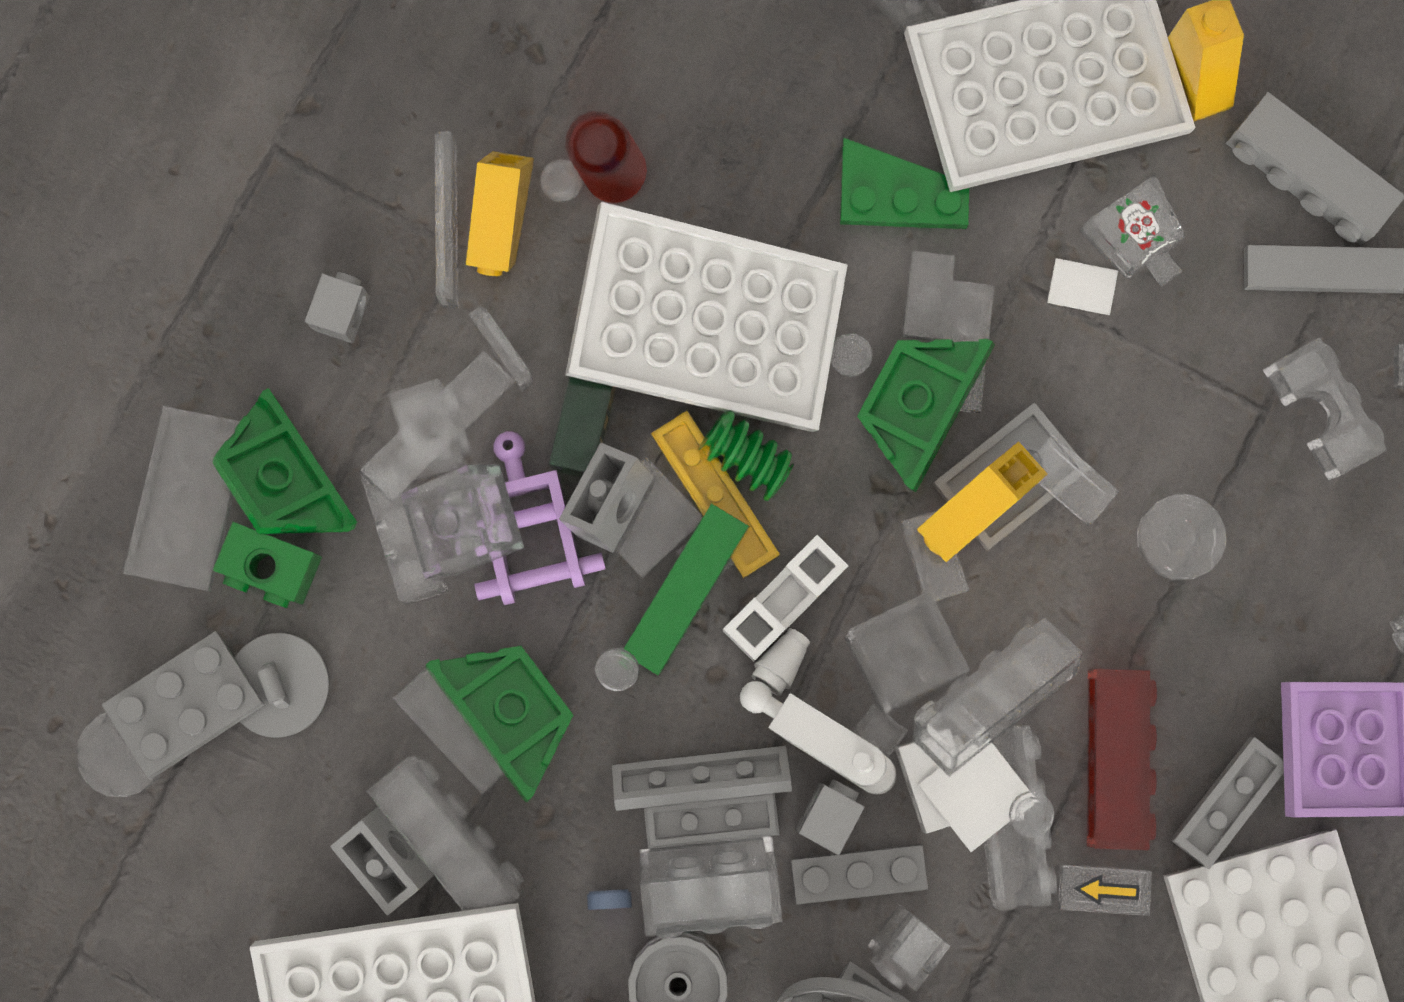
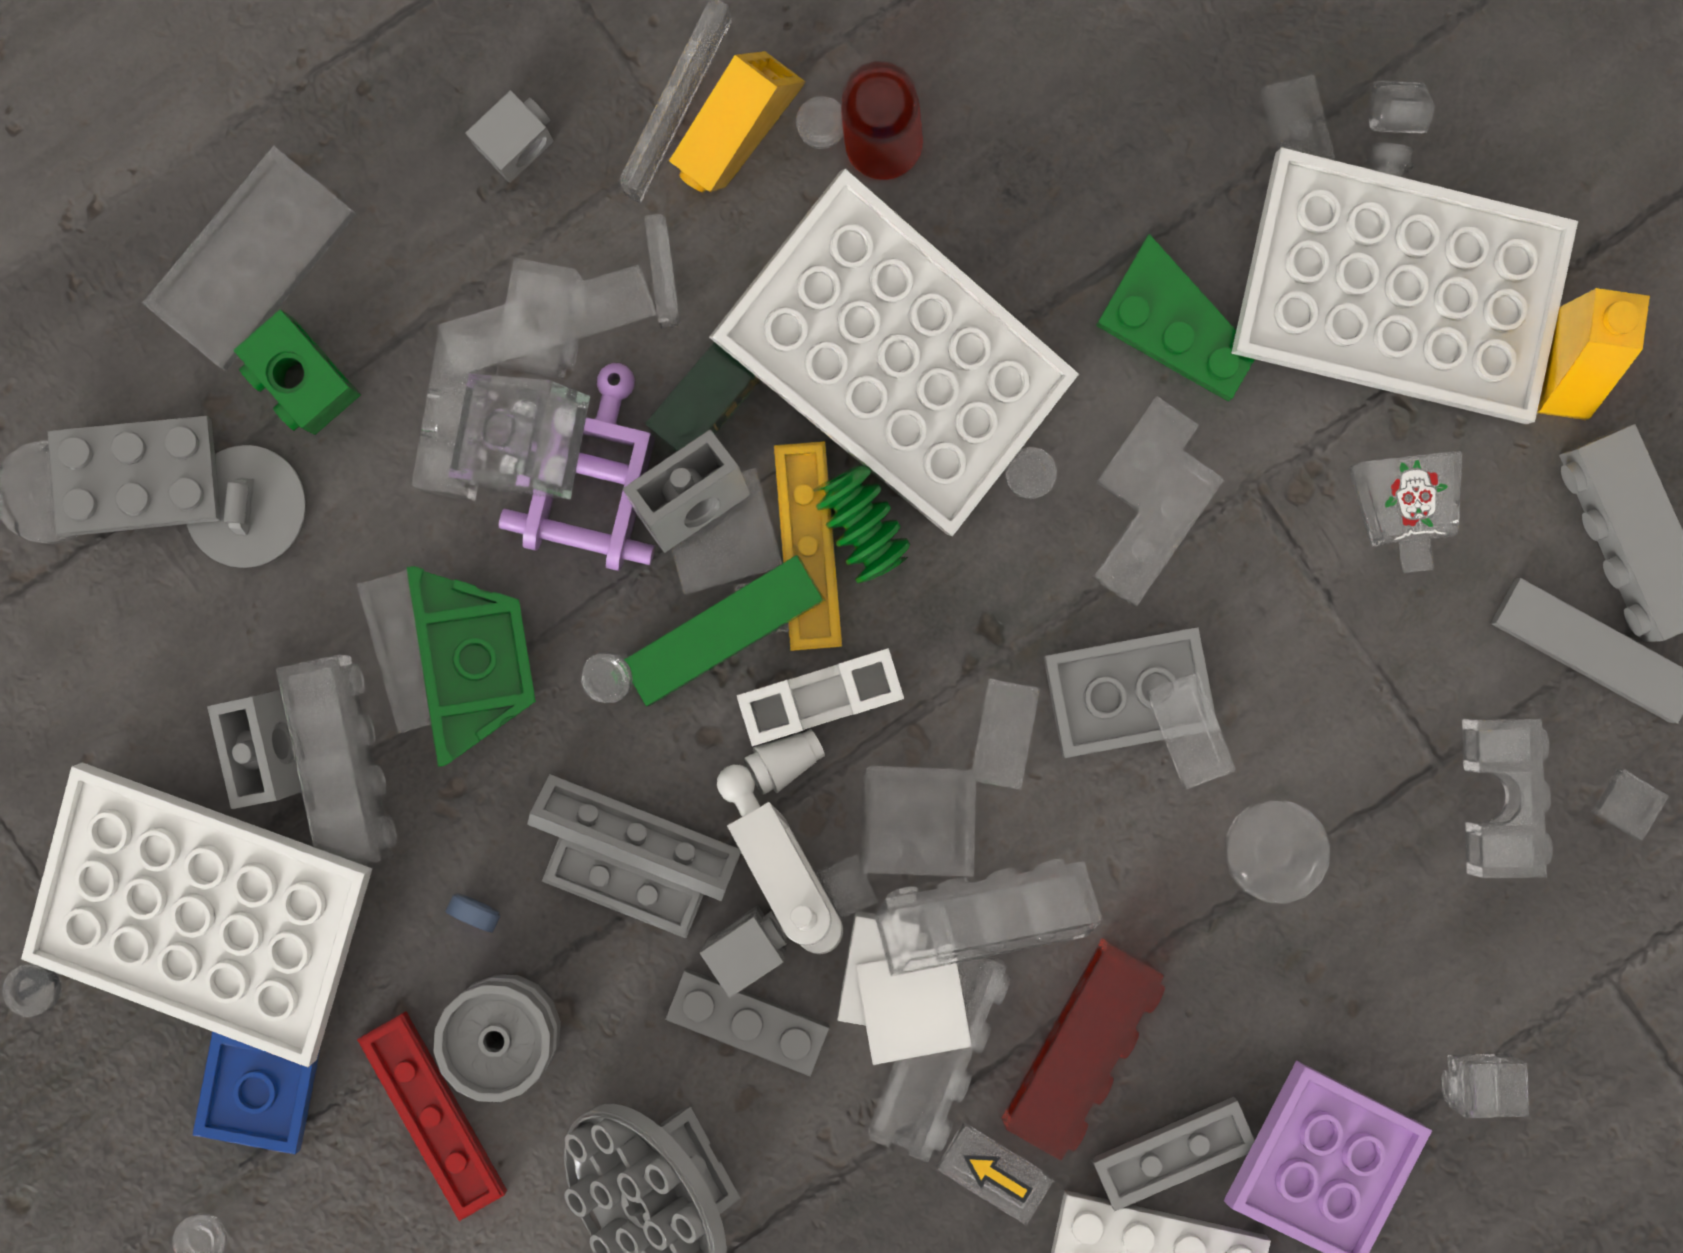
camera: 25 degrees right, 5 degrees up
(278, 475) = (354, 284): green wing -> none
(709, 887) = (580, 956): clear brick -> none
(906, 949) = (750, 1130): clear arch -> none
(920, 399) = (1077, 561): green wing -> none
(981, 502) = (1083, 706): yellow slope -> none
(1031, 814) = (956, 1060): clear plate -> none
(1082, 286) = (1319, 529): white sticker -> none

